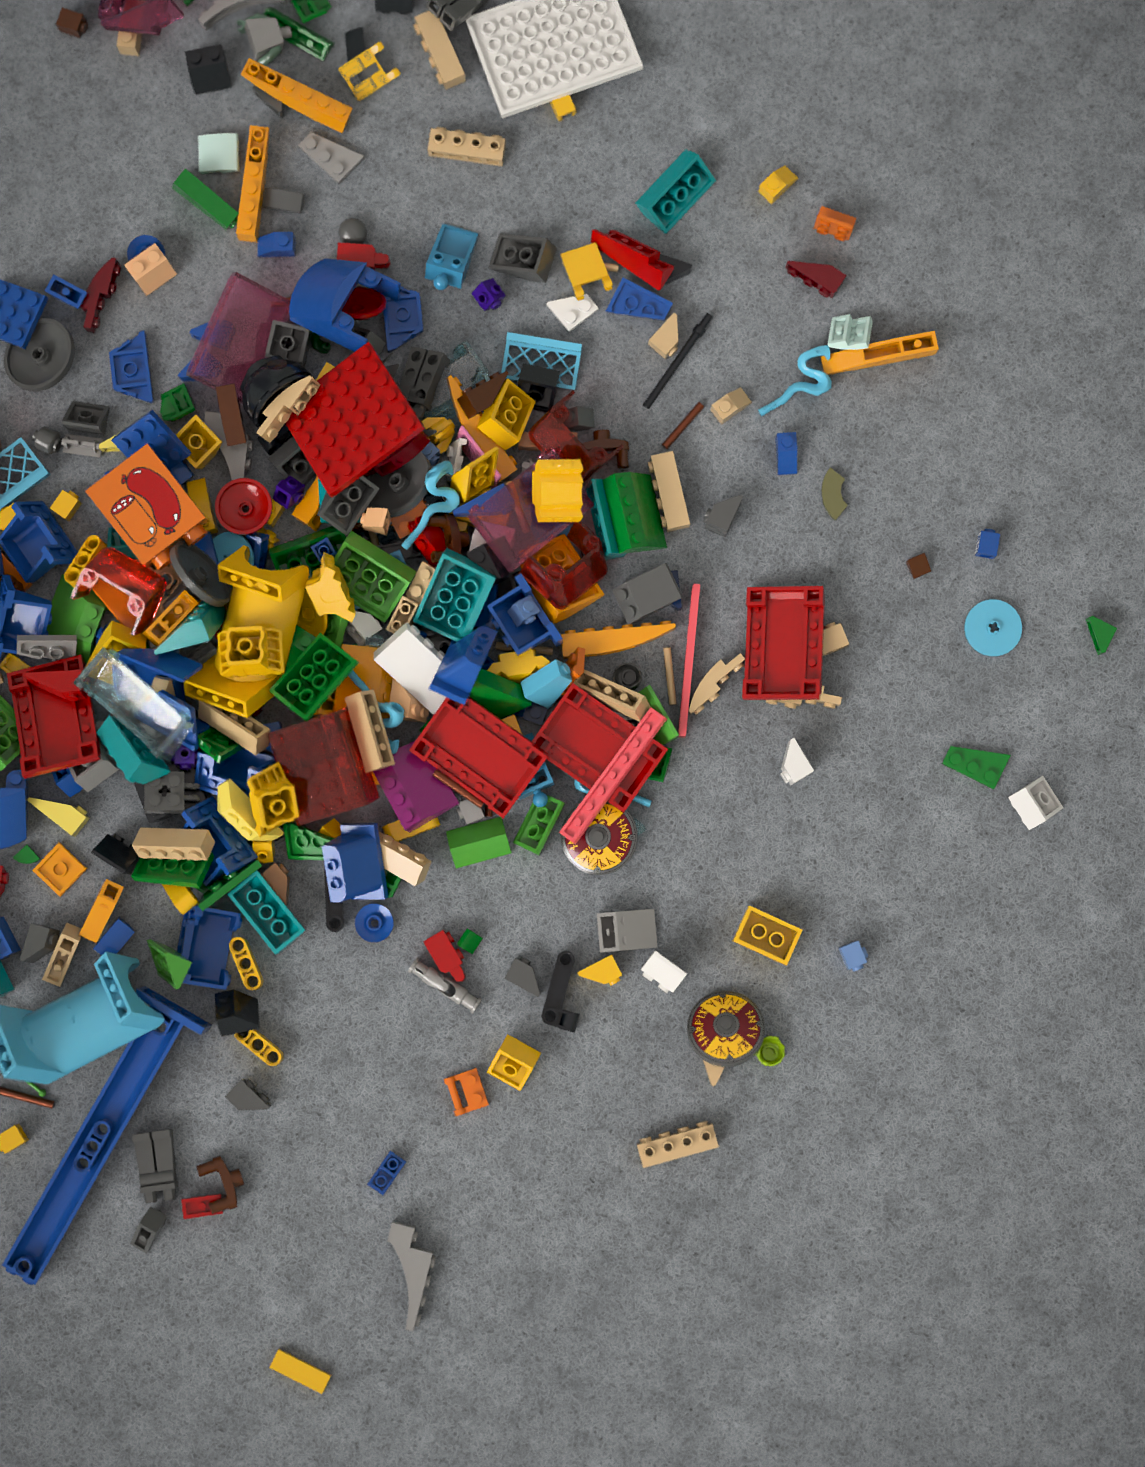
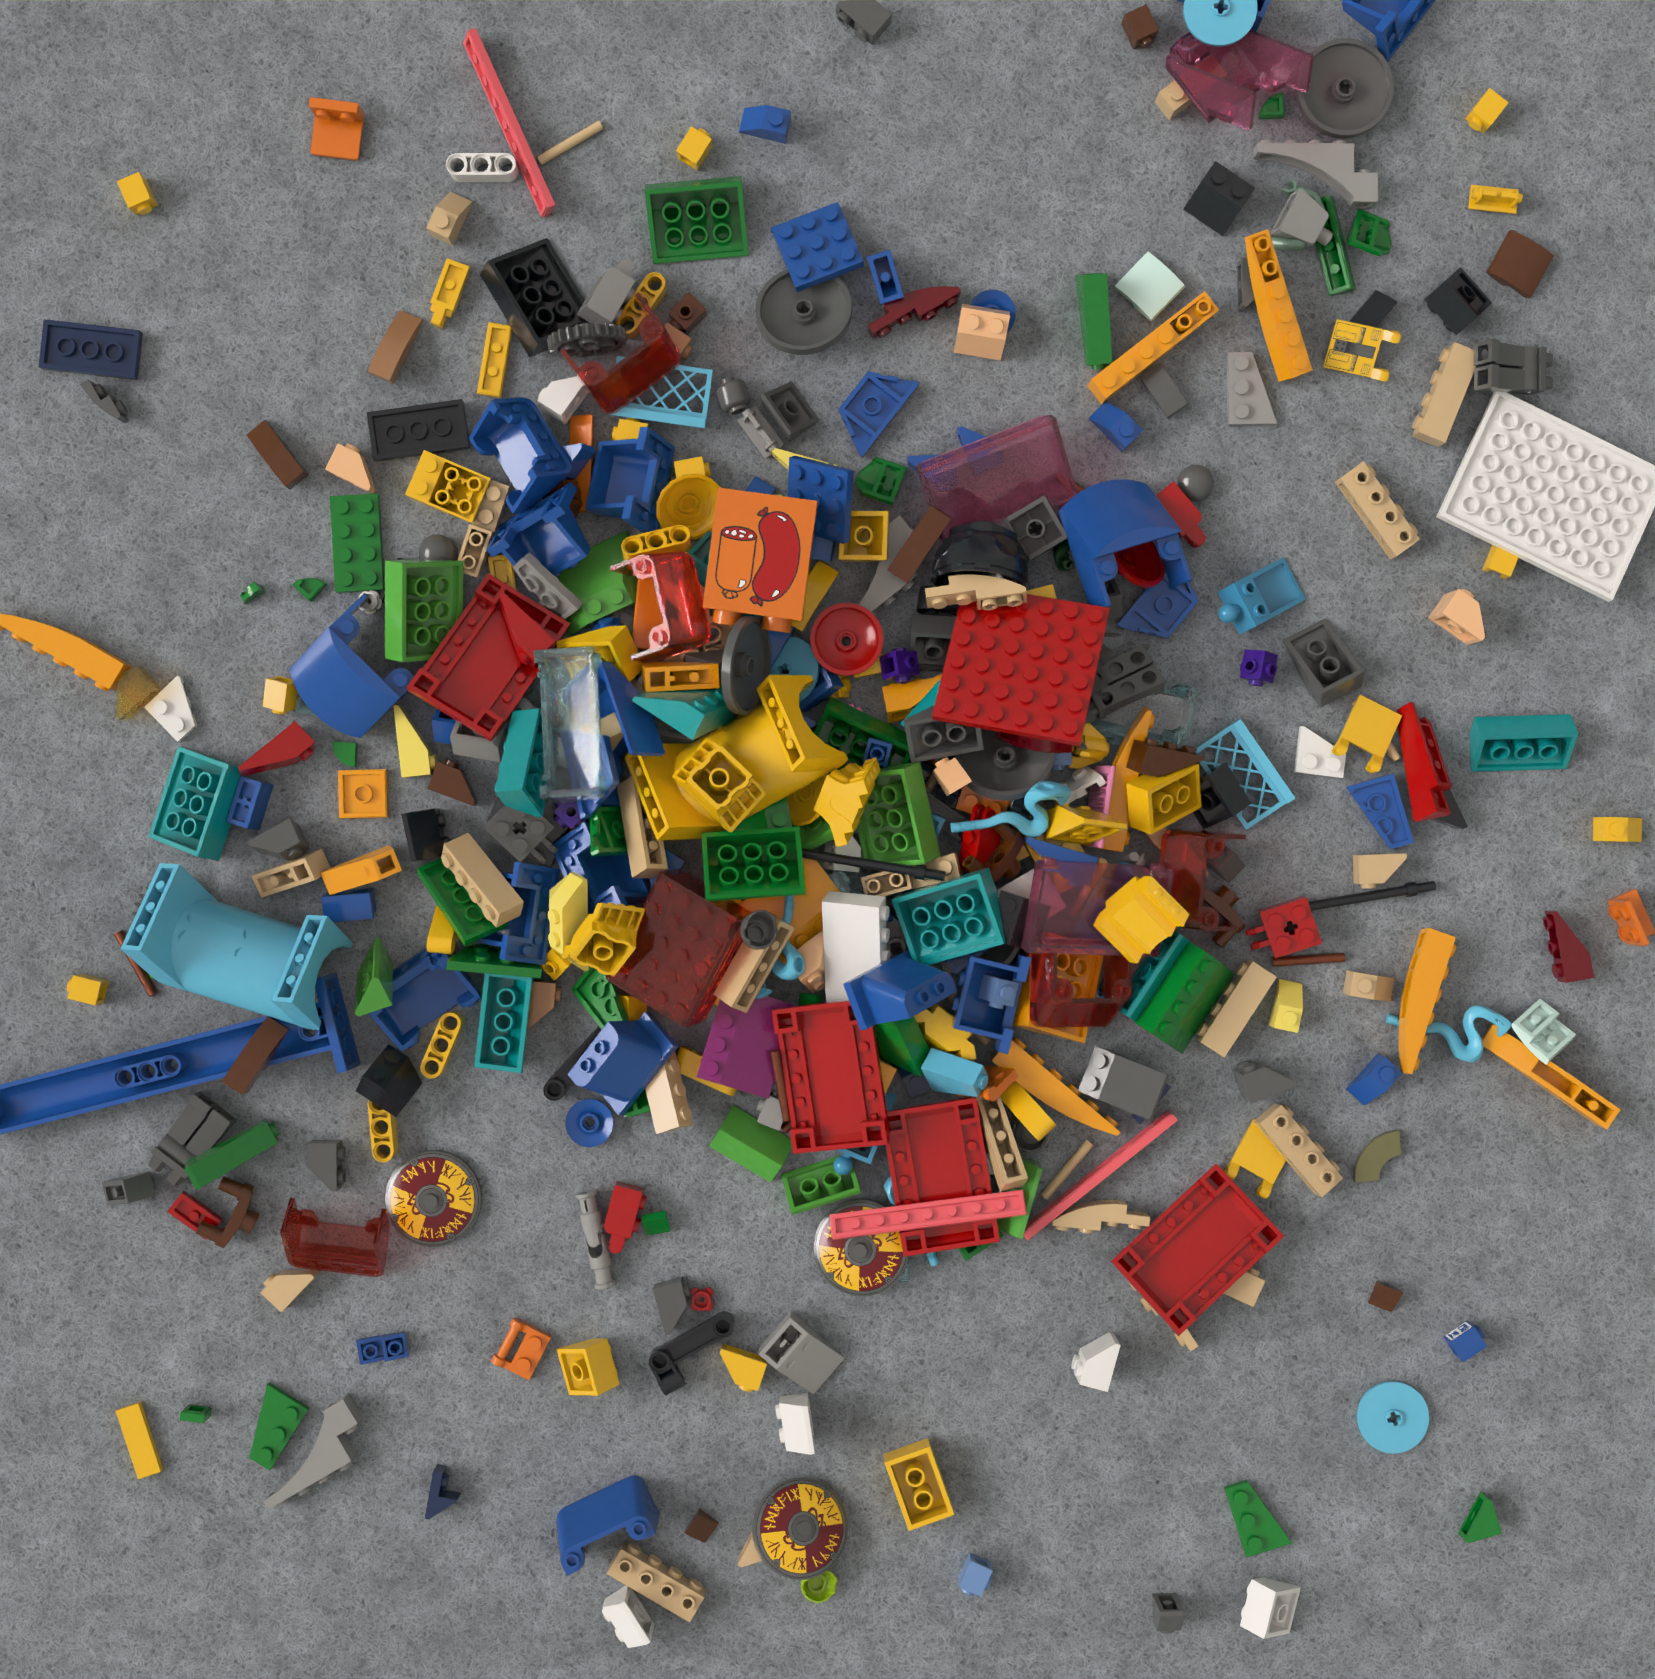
camera: 40 degrees right, 5 degrees up
(81, 519) = (688, 502): none -> yellow hat
(103, 811) = (452, 783): none -> reddish brown slope
(143, 1070) = (255, 1056): none -> reddish brown slope
(186, 1144) = (231, 1153): none -> green slope
(296, 1193) = (286, 1286): none -> tan slope
(302, 1141) = (335, 1246): none -> clear red windscreen
(314, 1322) = (195, 1413): none -> green tile
(329, 1057) = (433, 1198): none -> dish
(352, 707) = (758, 929): none -> dark grey hair
(371, 1281) = (276, 1425): none -> green wing
(413, 590) = (919, 871): none -> black bar
(505, 1227) = (438, 1497): none -> dark blue slope
(539, 963) = (707, 1294): none -> red plate
(570, 157) = (1460, 616): none -> light nougat slope
(604, 1135) = (602, 1513): none -> blue windscreen
(610, 663) = (1027, 1110): none -> yellow beam
(640, 421) = (1274, 921): none -> red hinge
(672, 1088) = (701, 1526): none -> reddish brown slope
(681, 1182) = (628, 1617): none -> white slope
(697, 462) = (1287, 1006): none -> light yellow slope
(761, 378) = (1421, 993): none -> light orange slope
(768, 557) = (1259, 1157): none -> yellow flag
(785, 533) = (1298, 1149): none -> tan brick
(982, 865) = (1167, 1612): none -> dark grey slope

